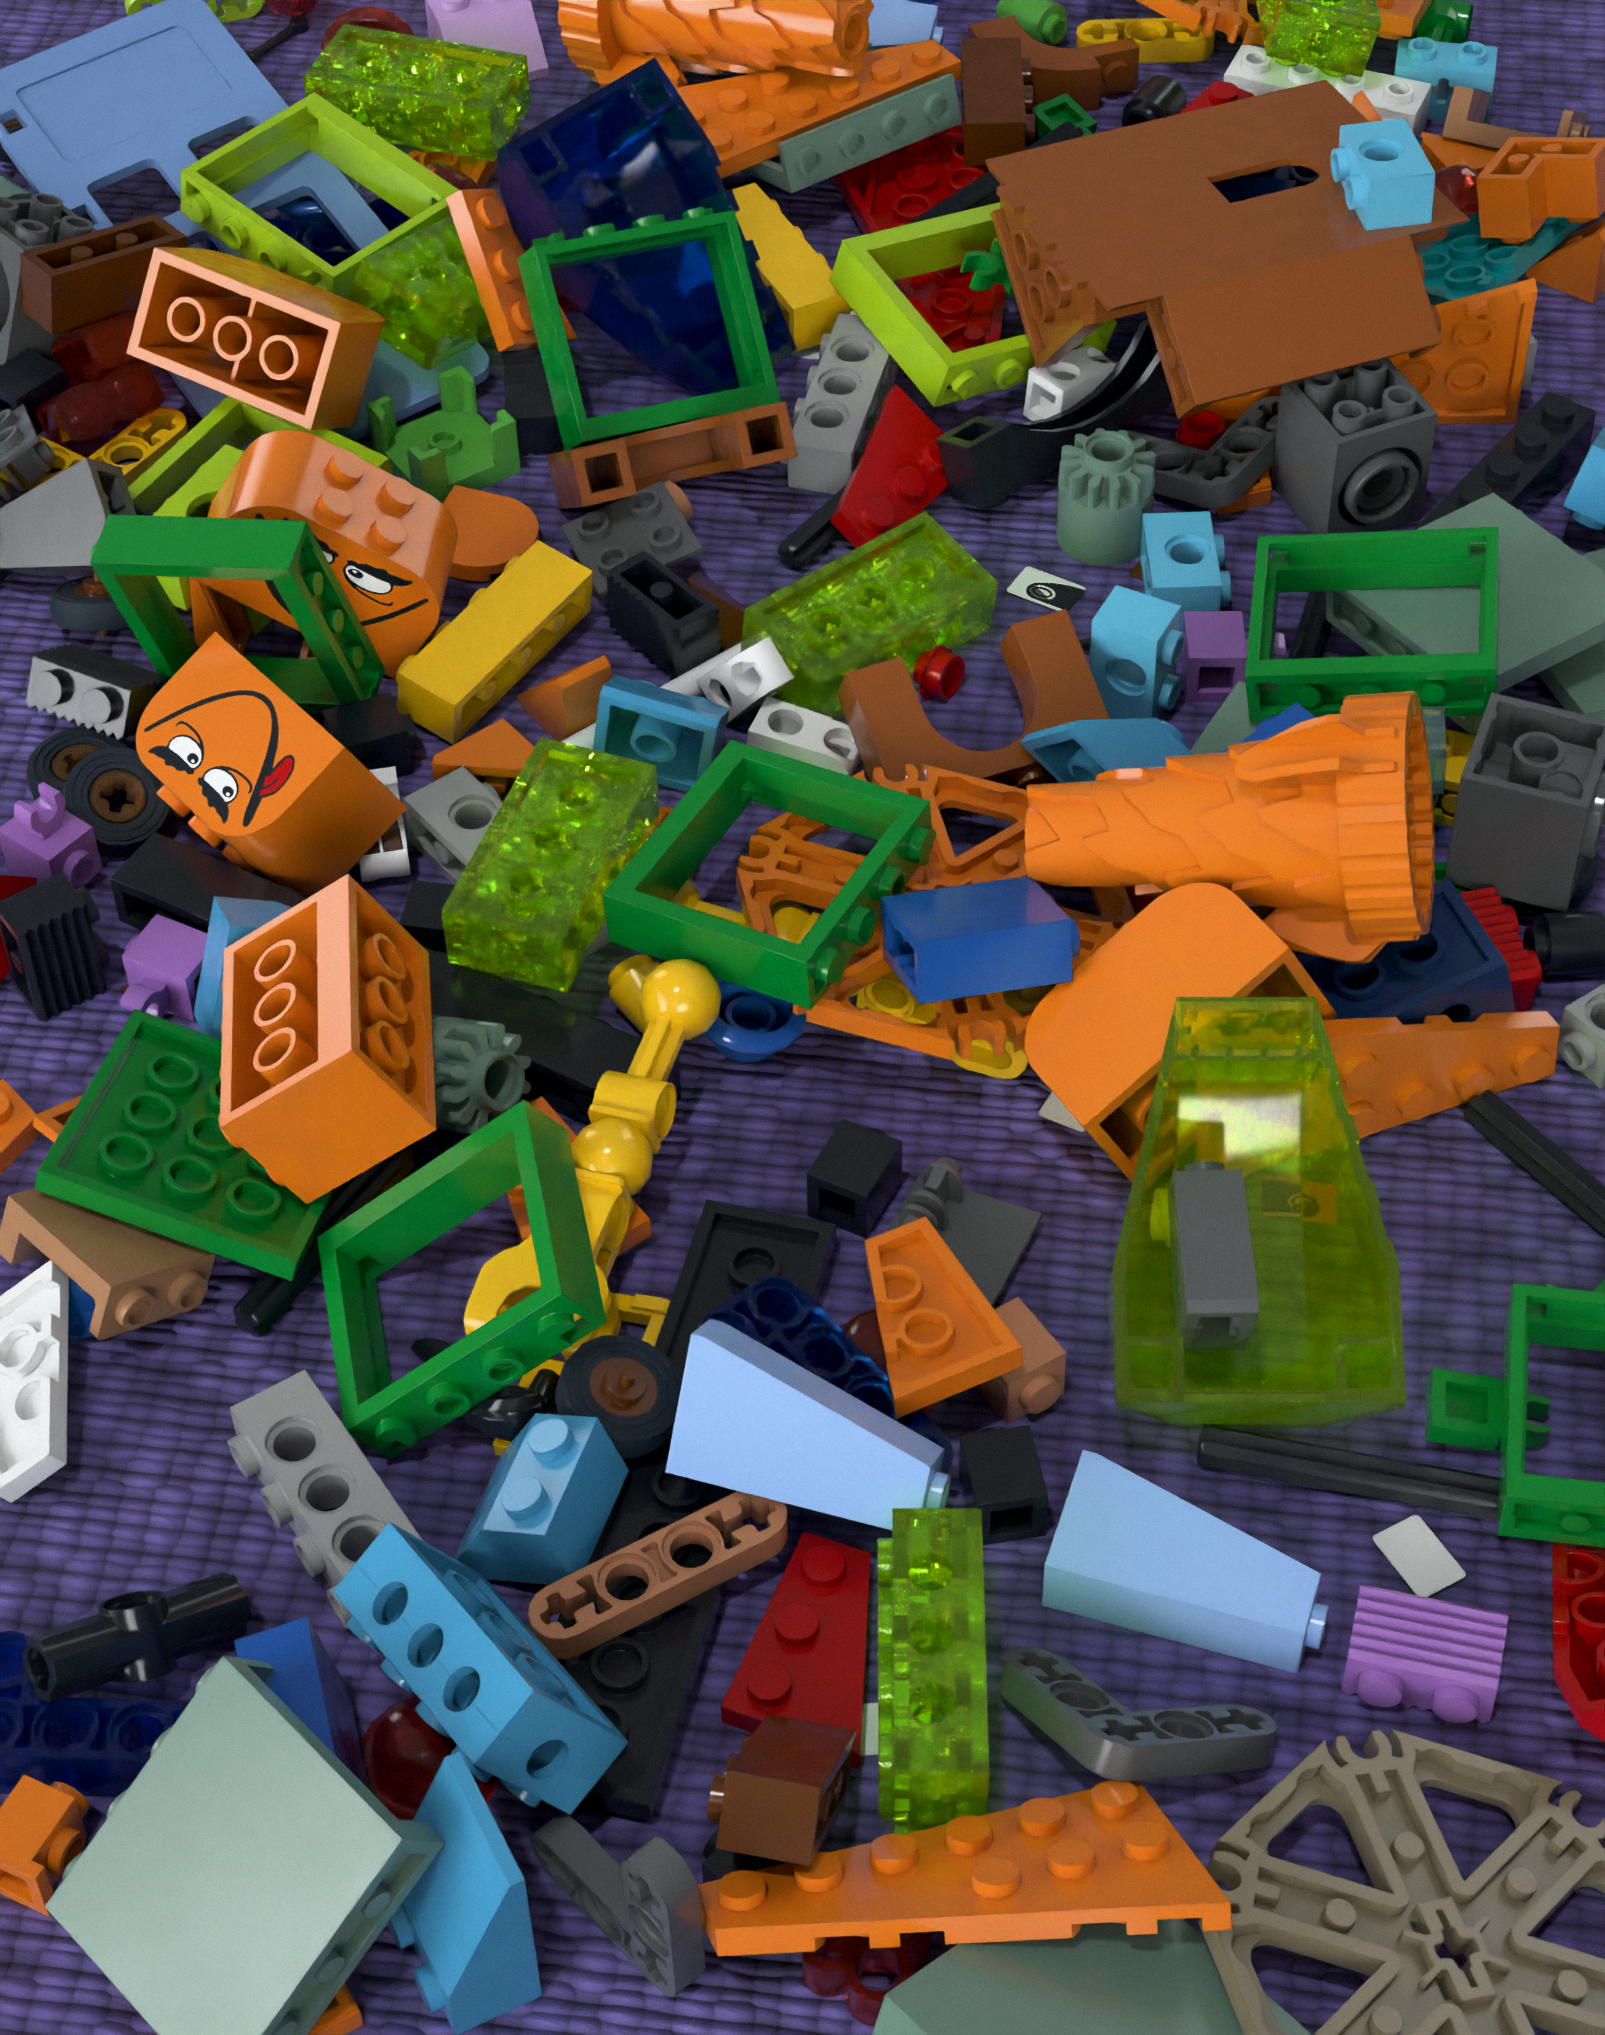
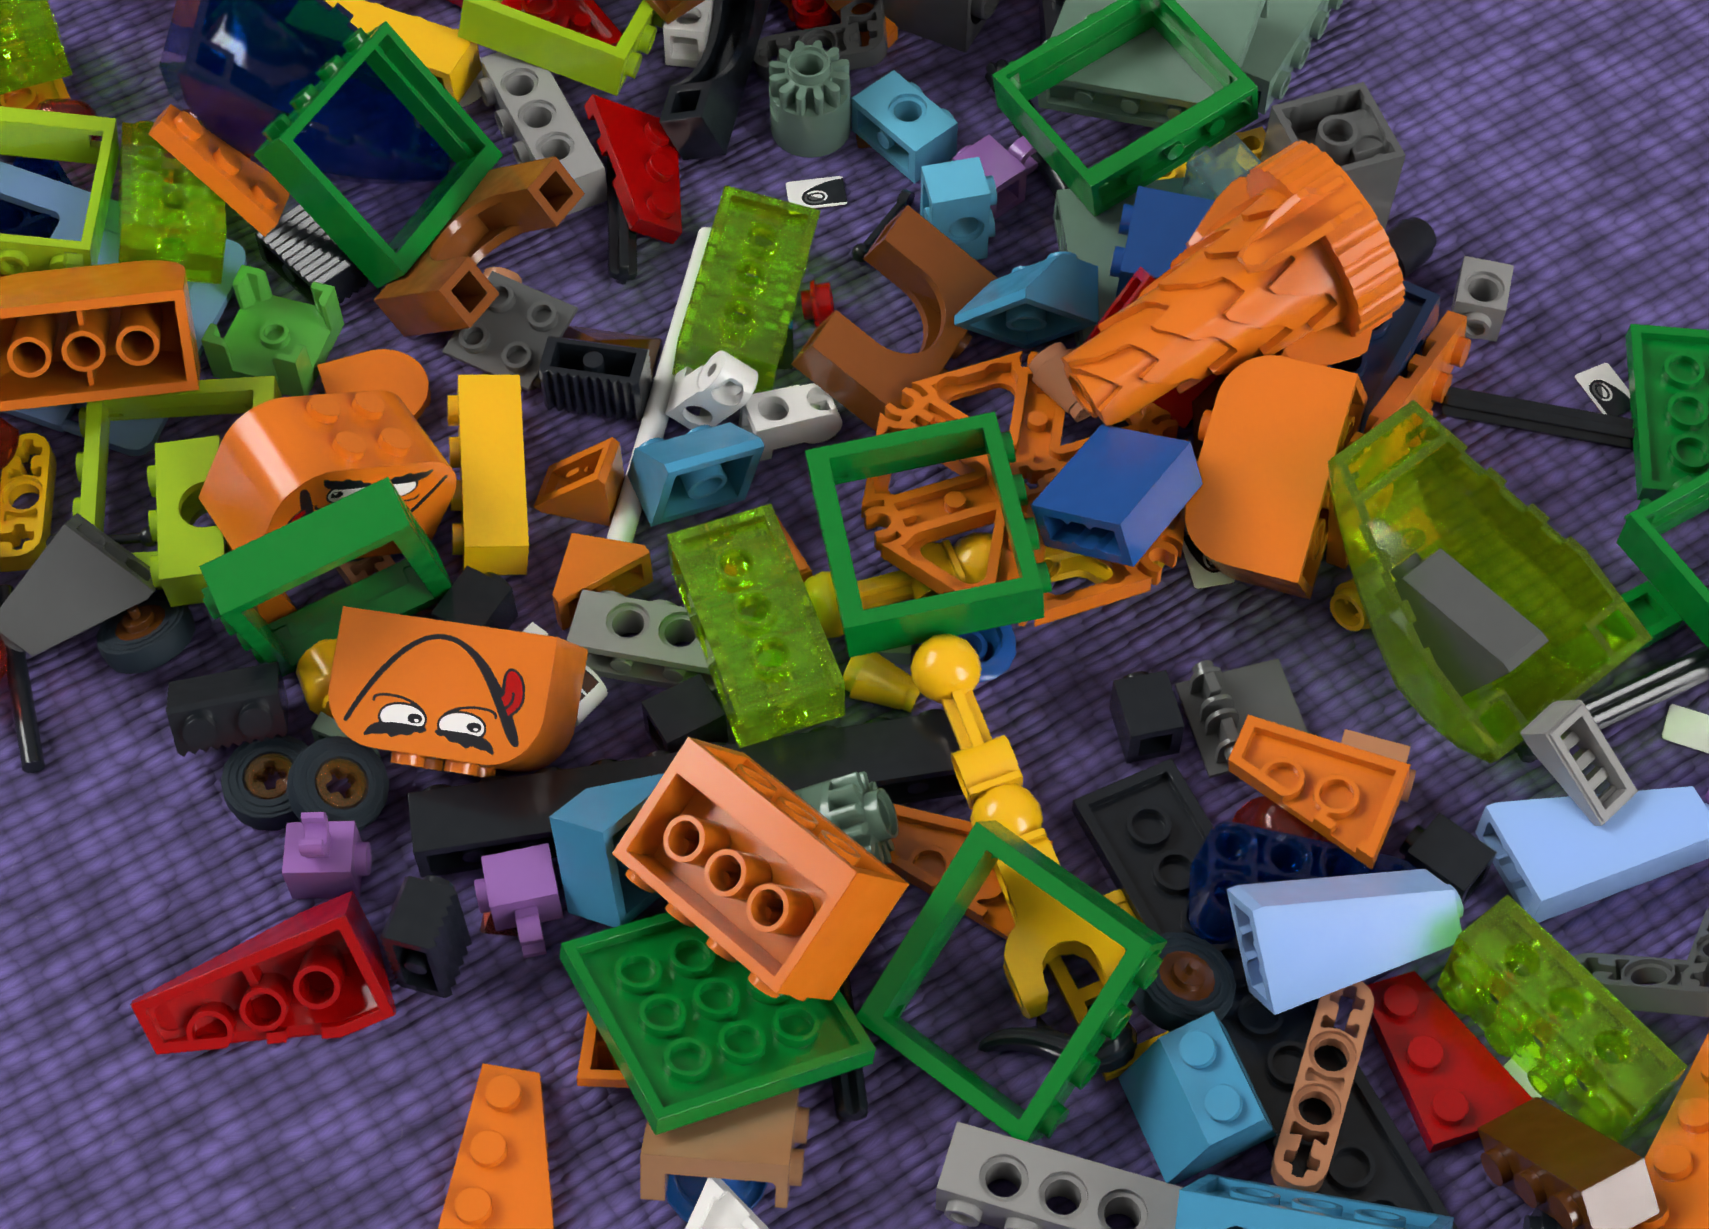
camera: 40 degrees left, 10 degrees up
(1233, 1460) = (1551, 738): none -> light grey slope

